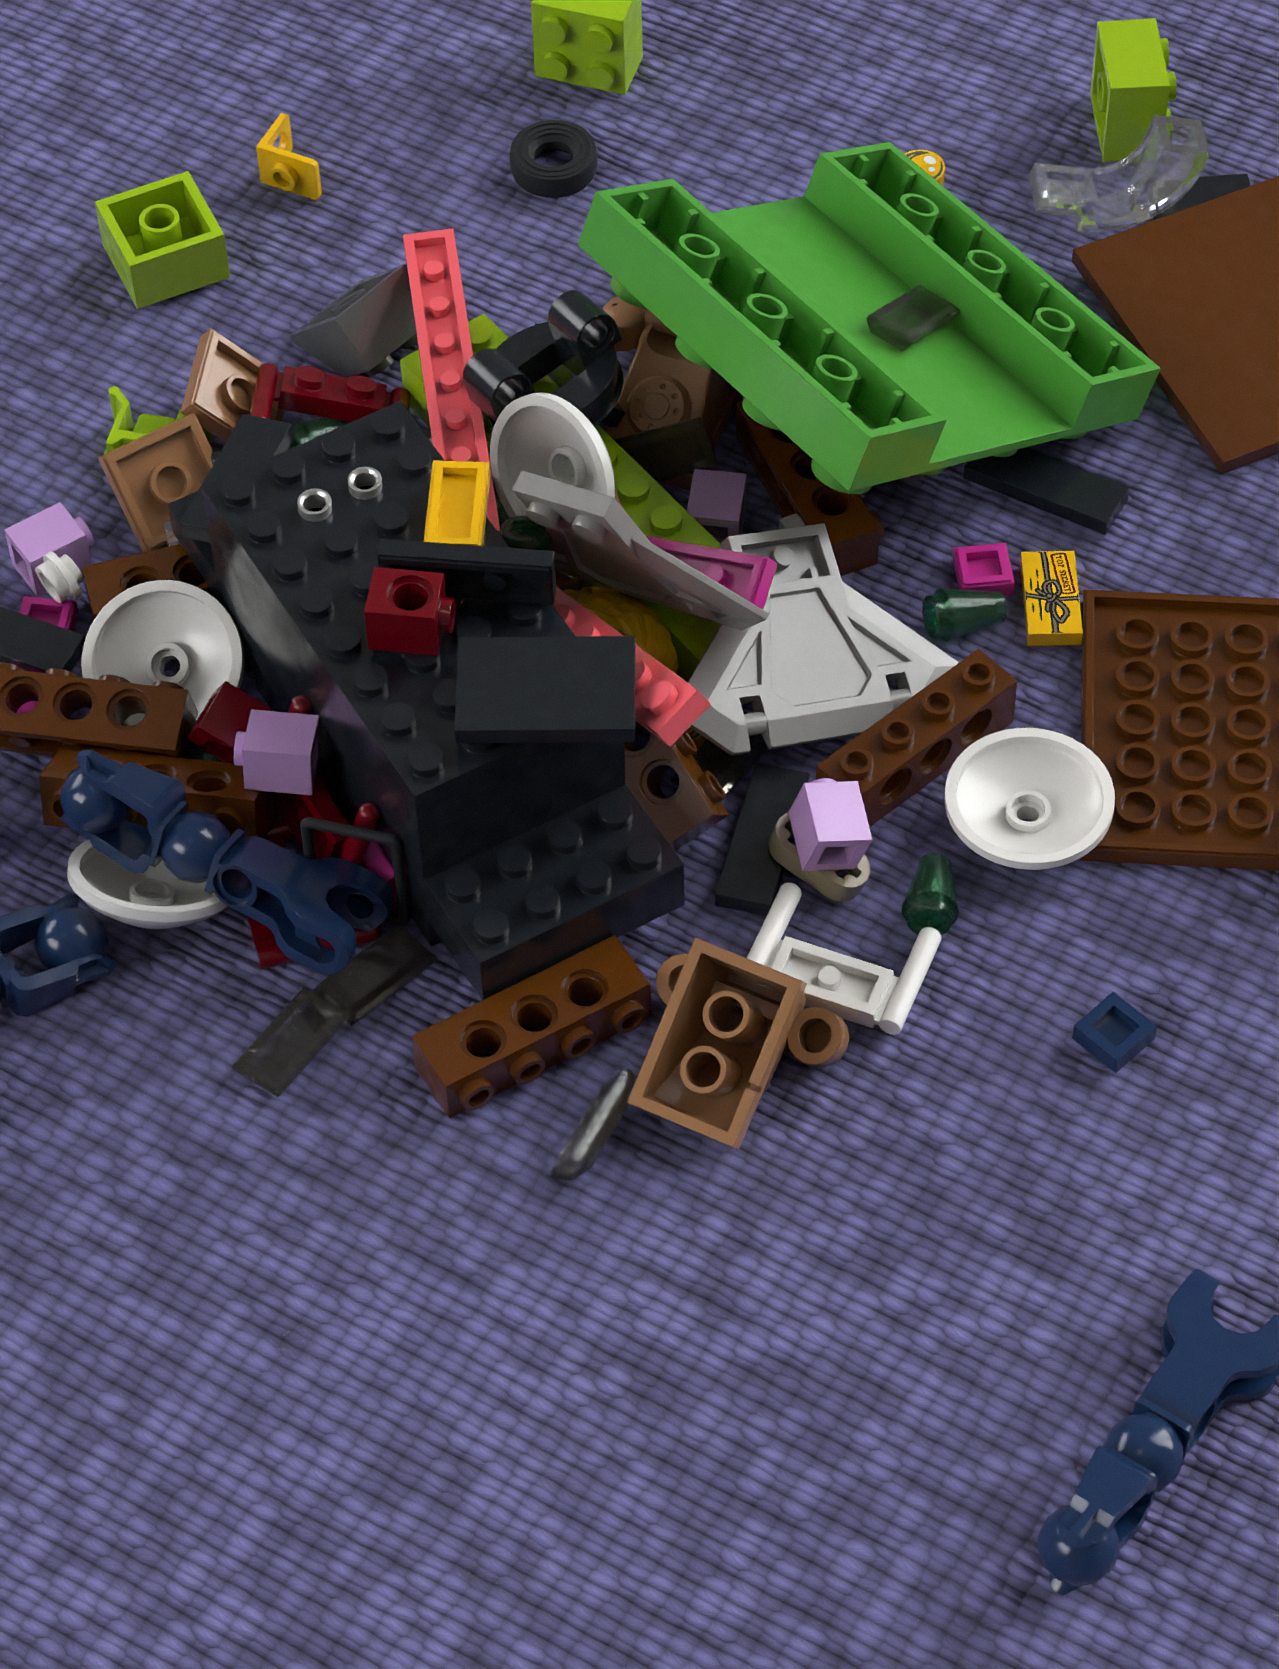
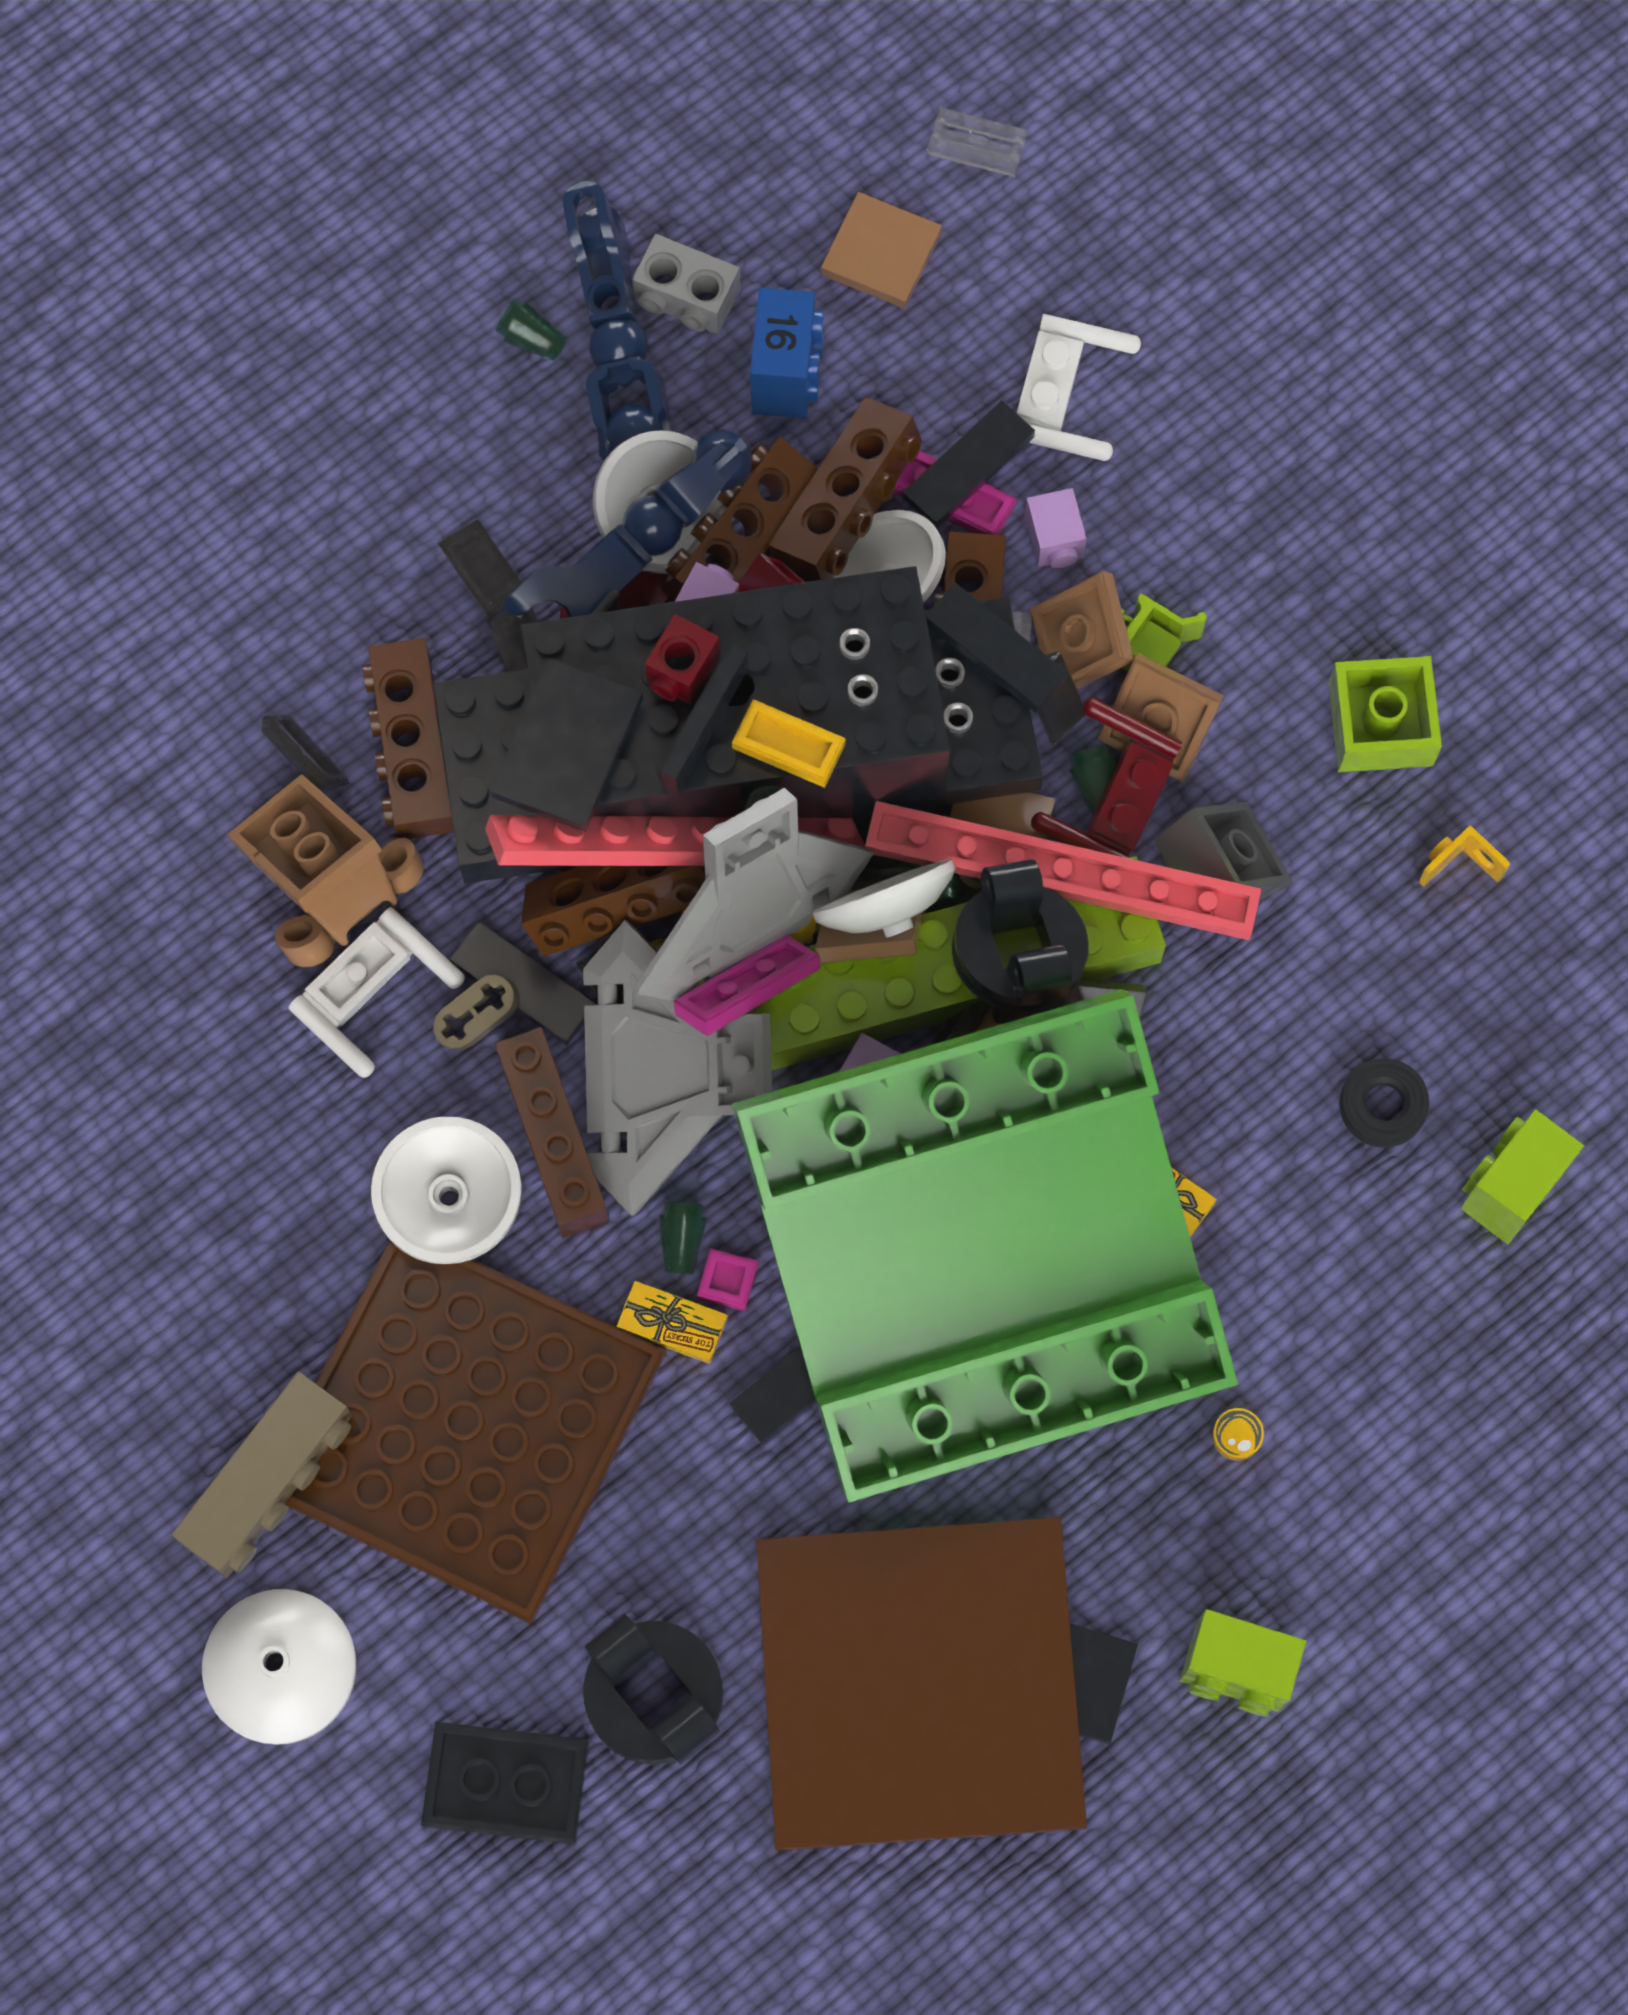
camera: 110 degrees right, 20 degrees up
(60, 577) = (1007, 519): white plate -> none
(830, 825) = (476, 1011): lavender brick -> none
(911, 317) = (978, 1292): clear smoke tile -> none
(931, 896) = (403, 1085): clear green cone -> none
(1114, 1032) = (213, 1169): dark blue plate -> none
(1130, 189) = (1128, 1593): clear arch -> none

